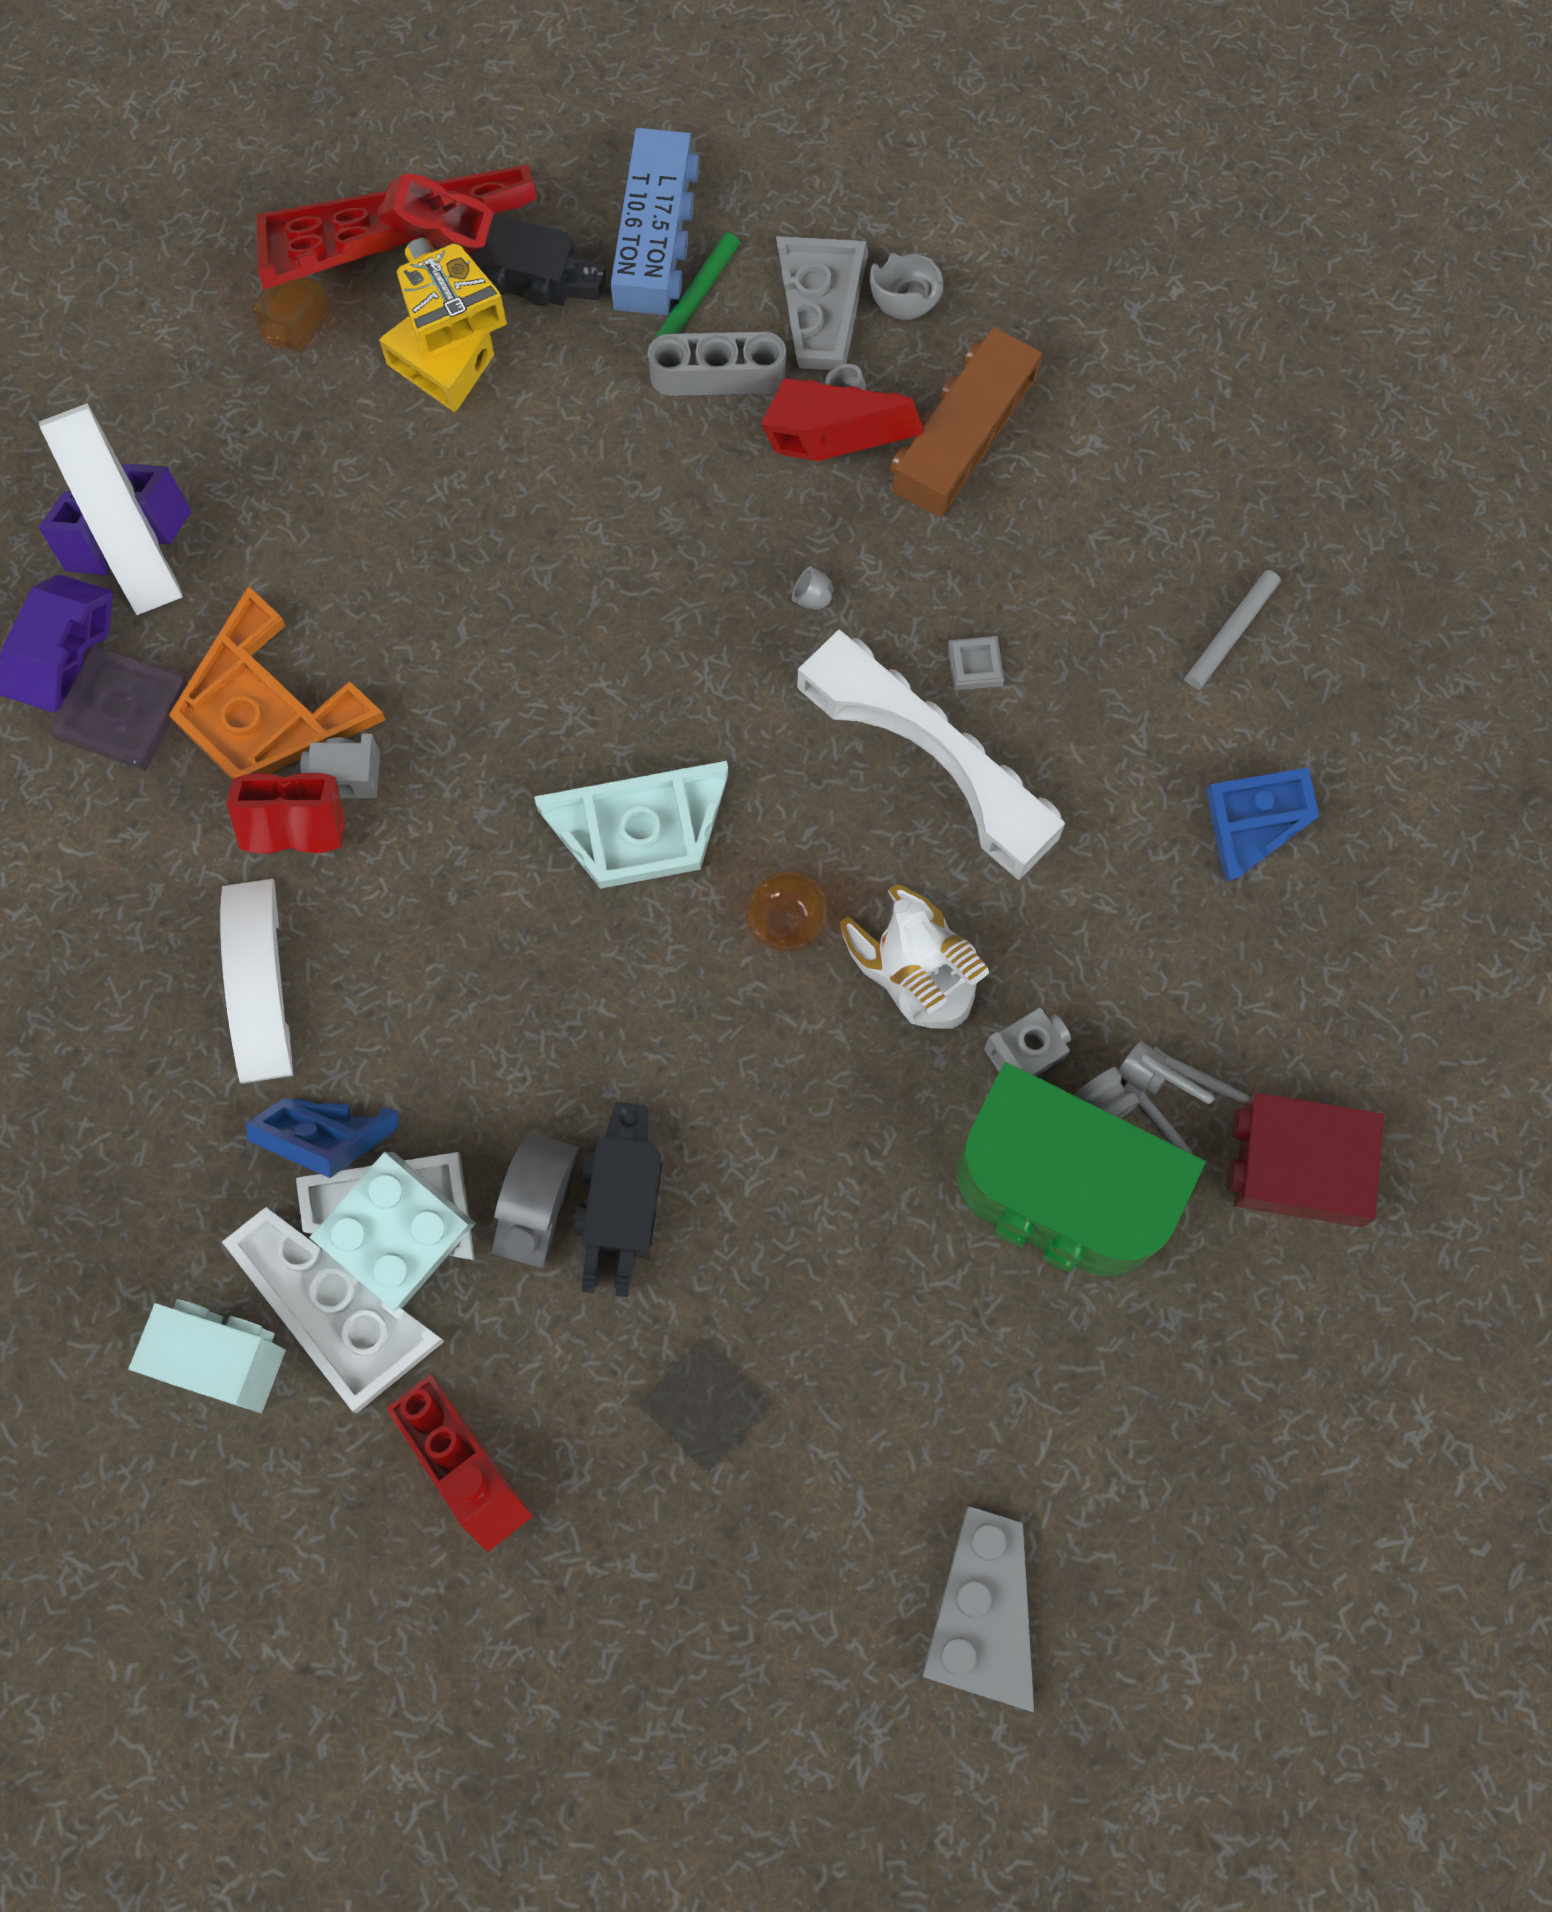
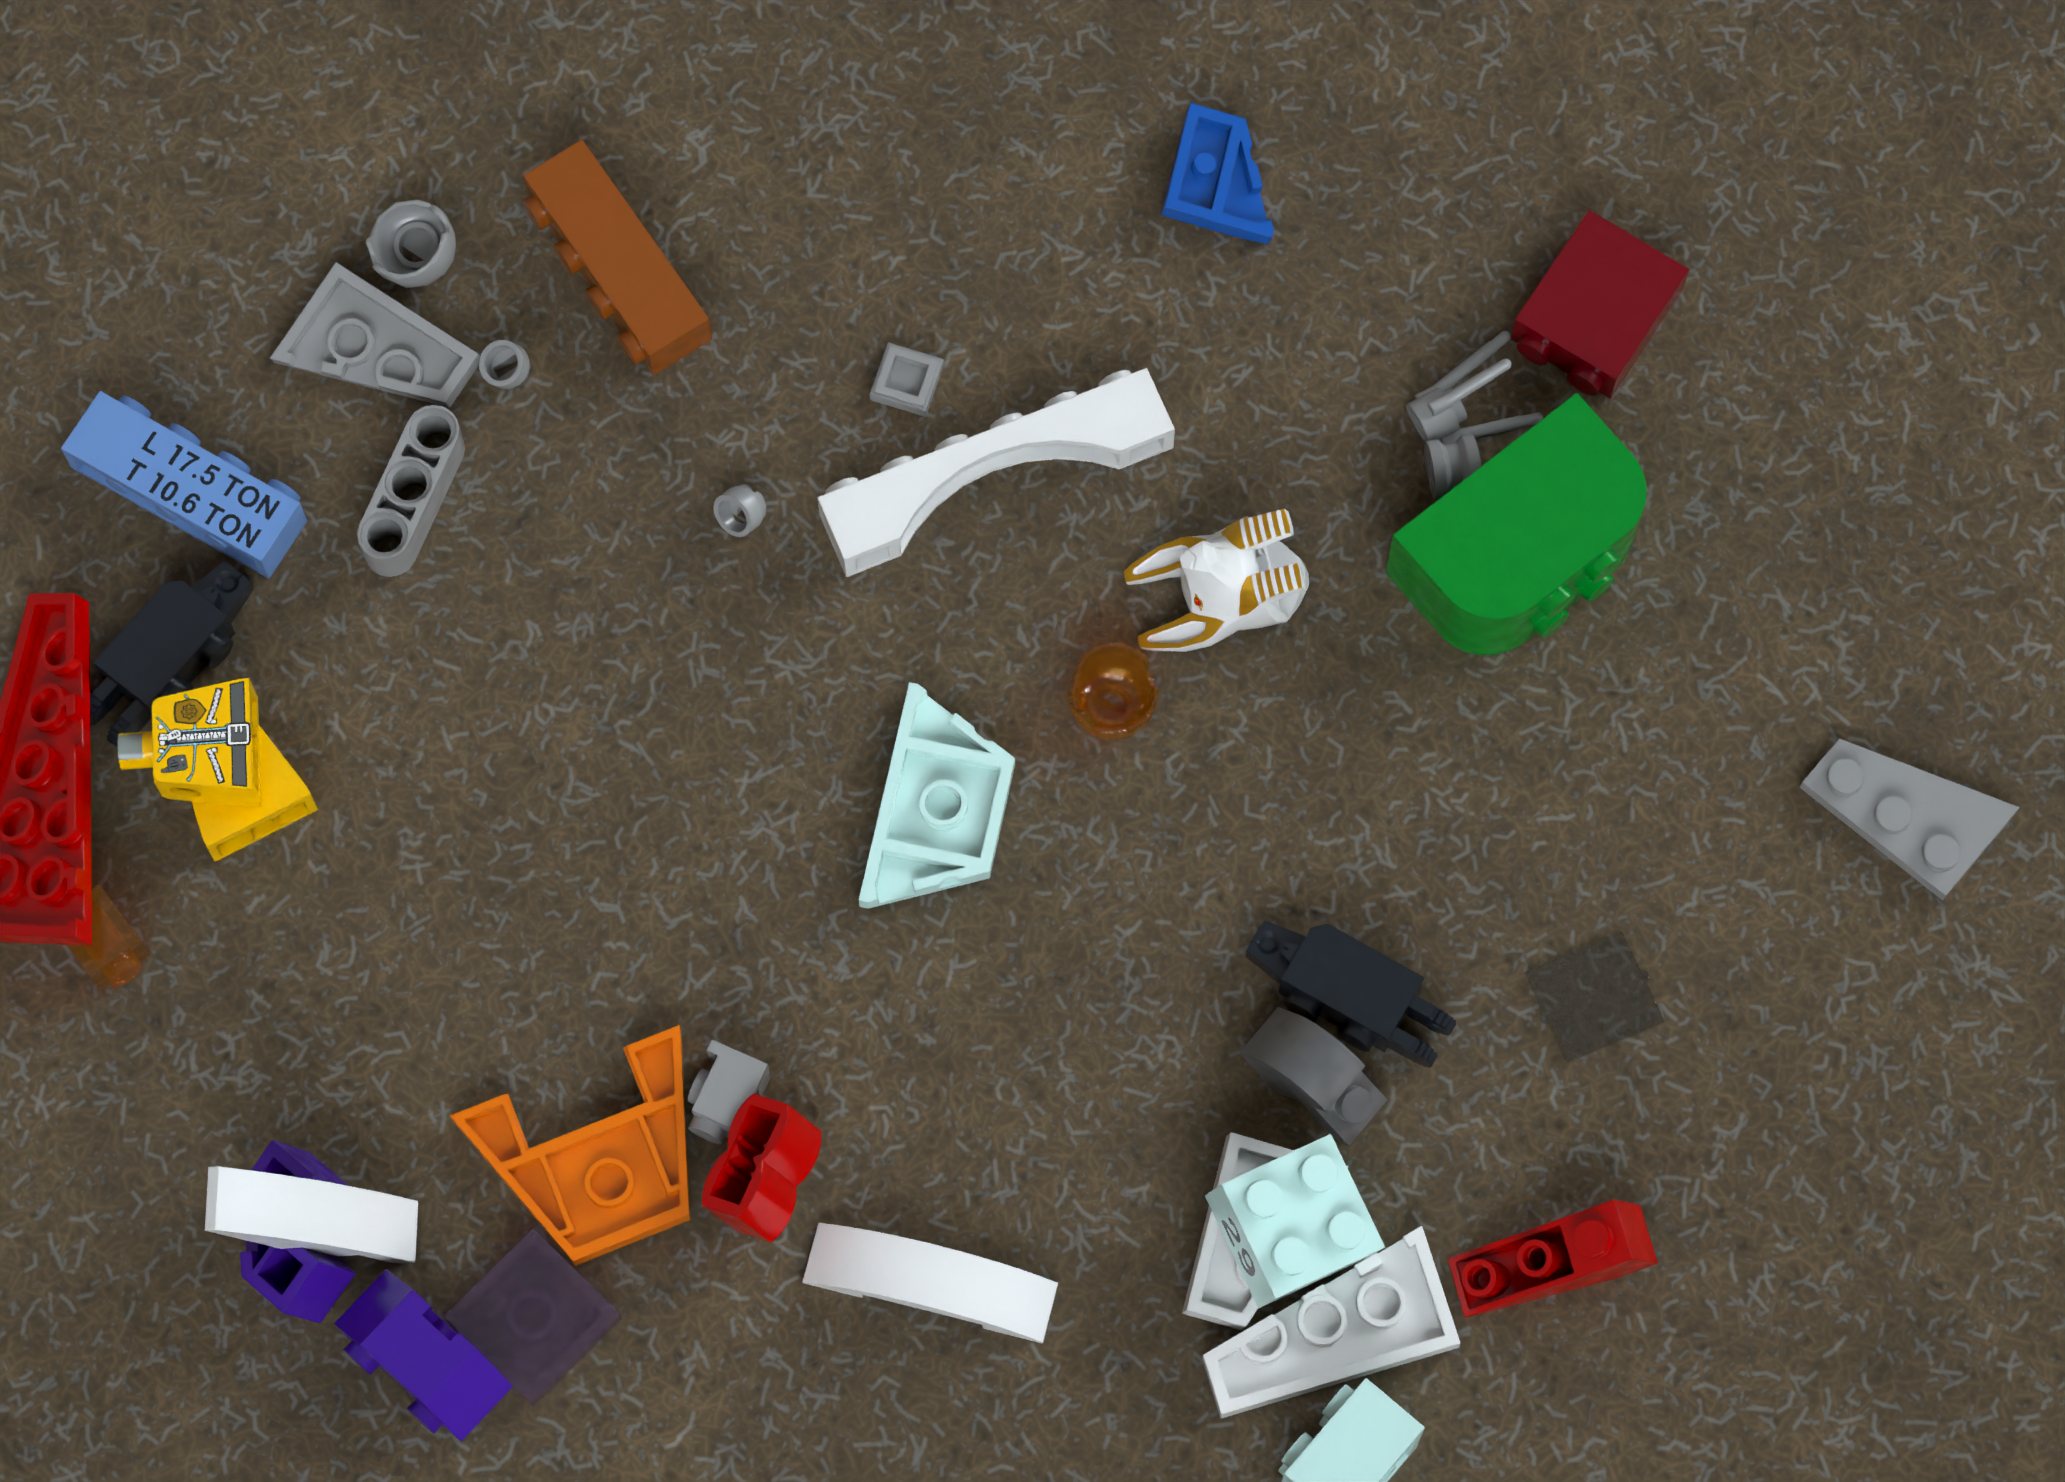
camera: 65 degrees left, 0 degrees up
(319, 1134) = (1145, 1271): blue wing -> none
(425, 208) = (100, 709): red brick -> none
(700, 285) = (292, 475): green bar -> none
(830, 420) = (553, 401): red slope -> none
(1010, 1045) = (1360, 535): light grey brick -> none
(1232, 629) = (990, 102): light grey bar -> none

